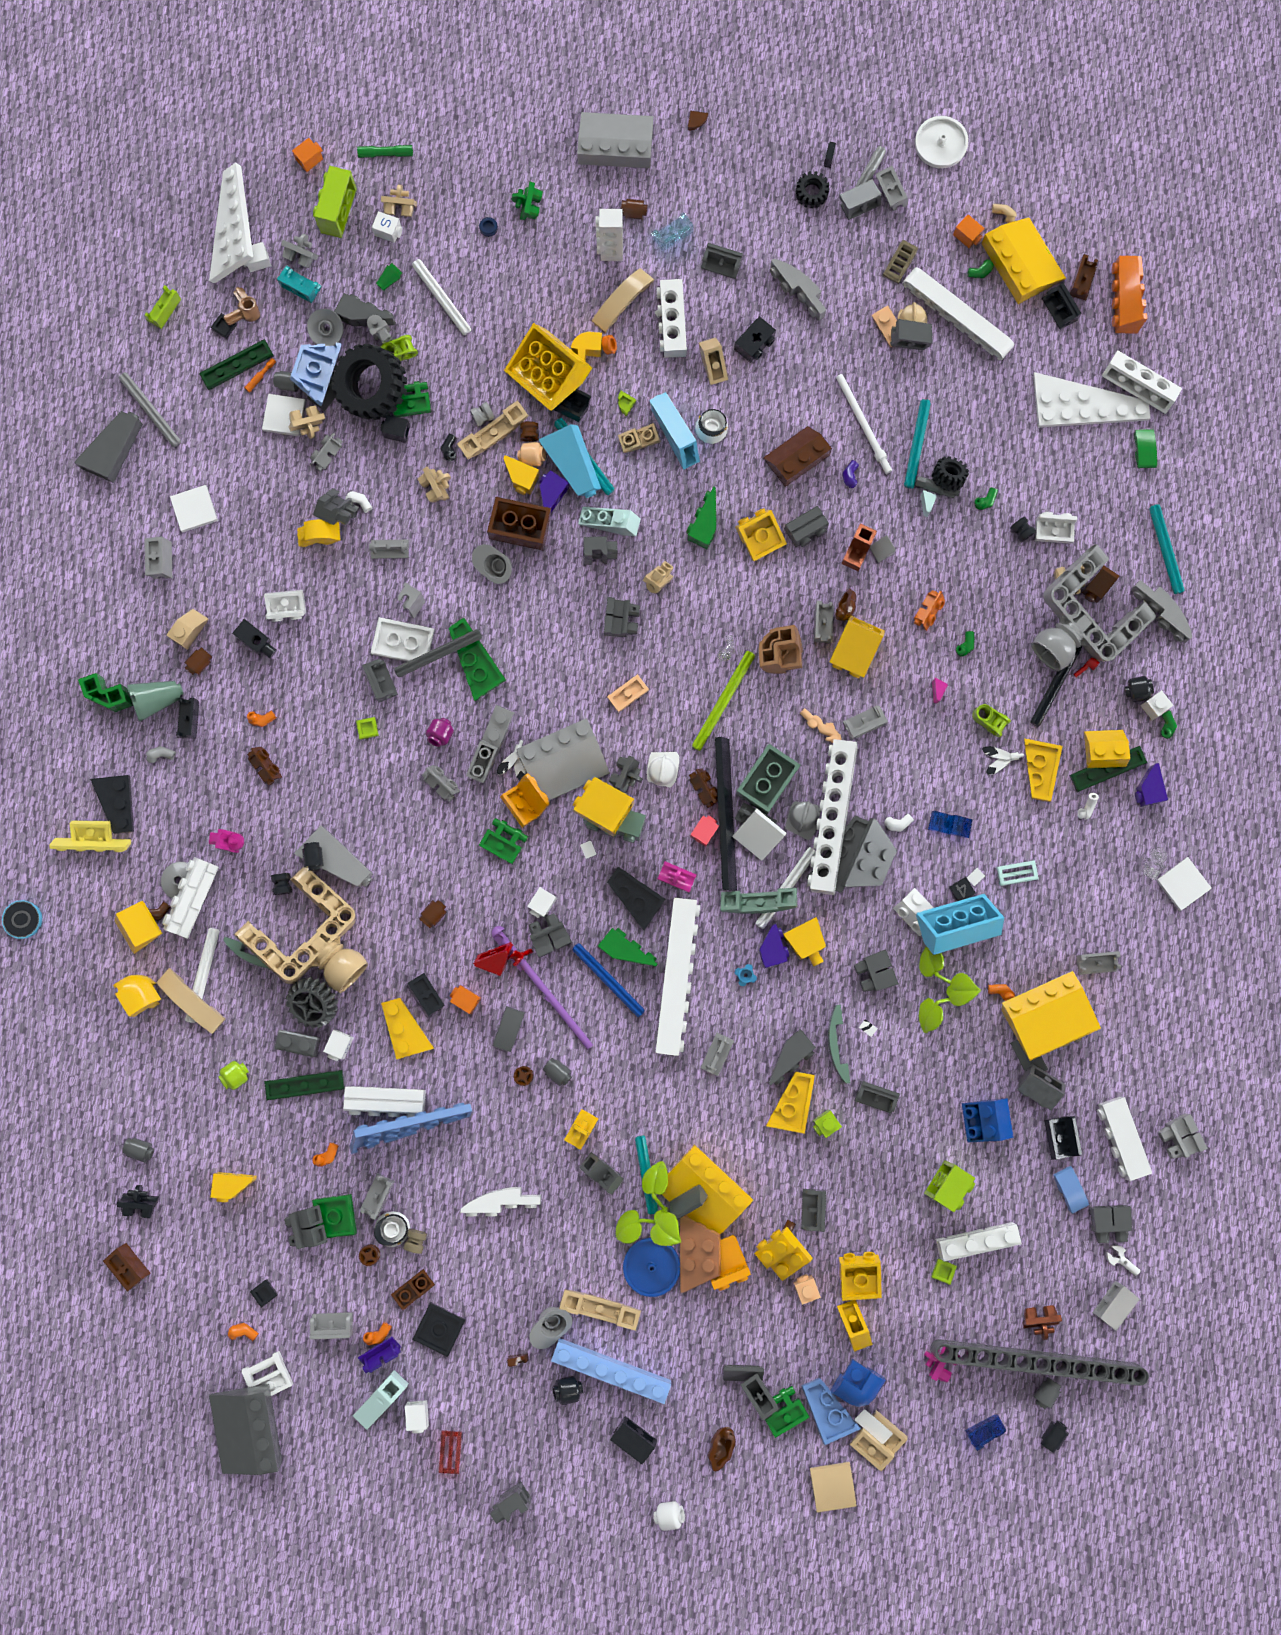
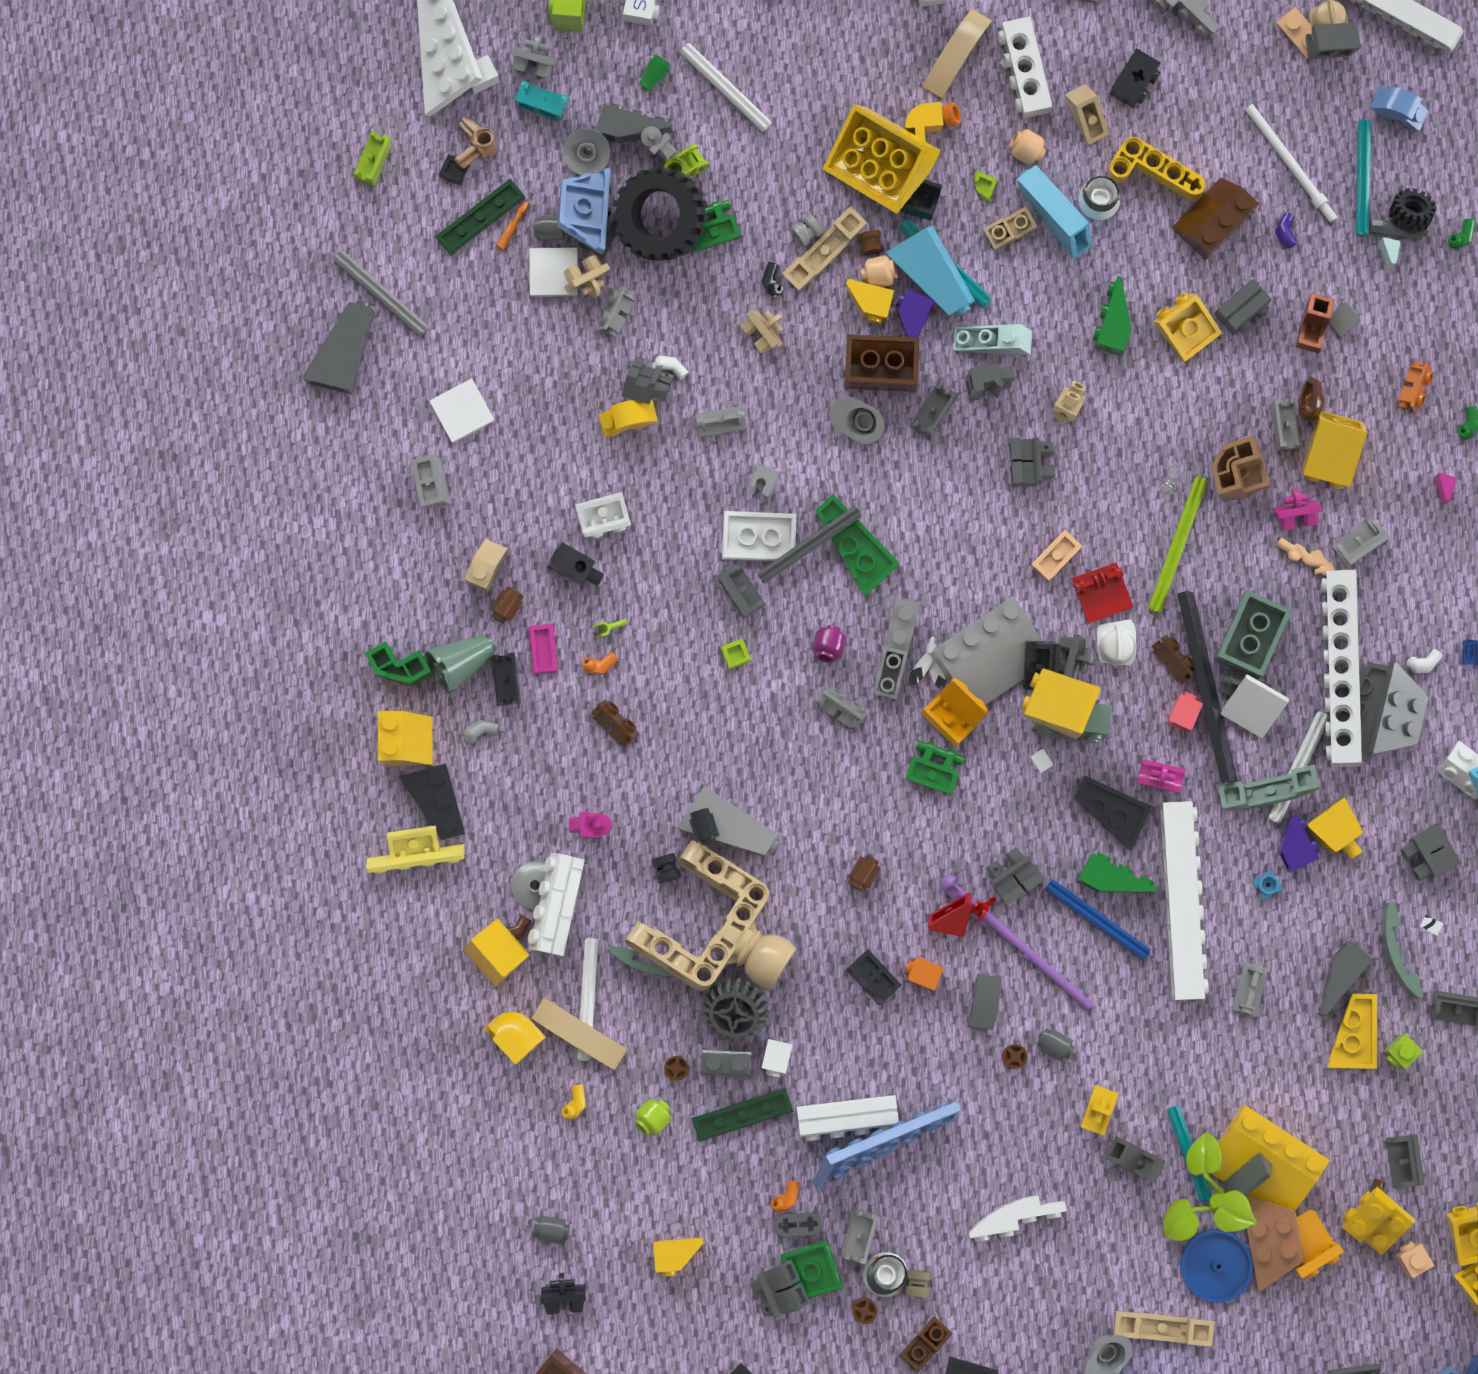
camera: 10 degrees left, 0 degrees up
(21, 919) = (346, 967): black tile -> none
(96, 750) = (405, 739): none -> yellow slope
(178, 1055) = (576, 1105): none -> yellow arm
(220, 700) = (543, 649): none -> dark pink tile
(255, 1039) = (676, 1065): none -> reddish brown wheel
(274, 691) = (606, 628): none -> lime hand
(330, 1183) = (796, 1218): none -> dark grey beam
(395, 428) = (700, 266): black brick -> none
(404, 1030) = (854, 1025): yellow wing -> none
(541, 903) = (997, 837): white brick -> none
(554, 567) = (933, 411): none -> dark grey hinge
(601, 768) = (1040, 656): none -> black hinge
(658, 728) = (1102, 592): none -> red hinge
(662, 378) = (1027, 147): none -> light nougat head
(759, 414) = (1158, 173): none -> yellow beam
(803, 819) = (1304, 677): light grey piece -> none
(812, 690) = (1308, 510): none -> dark pink hips
(955, 391) = (1400, 105): none -> medium blue brick

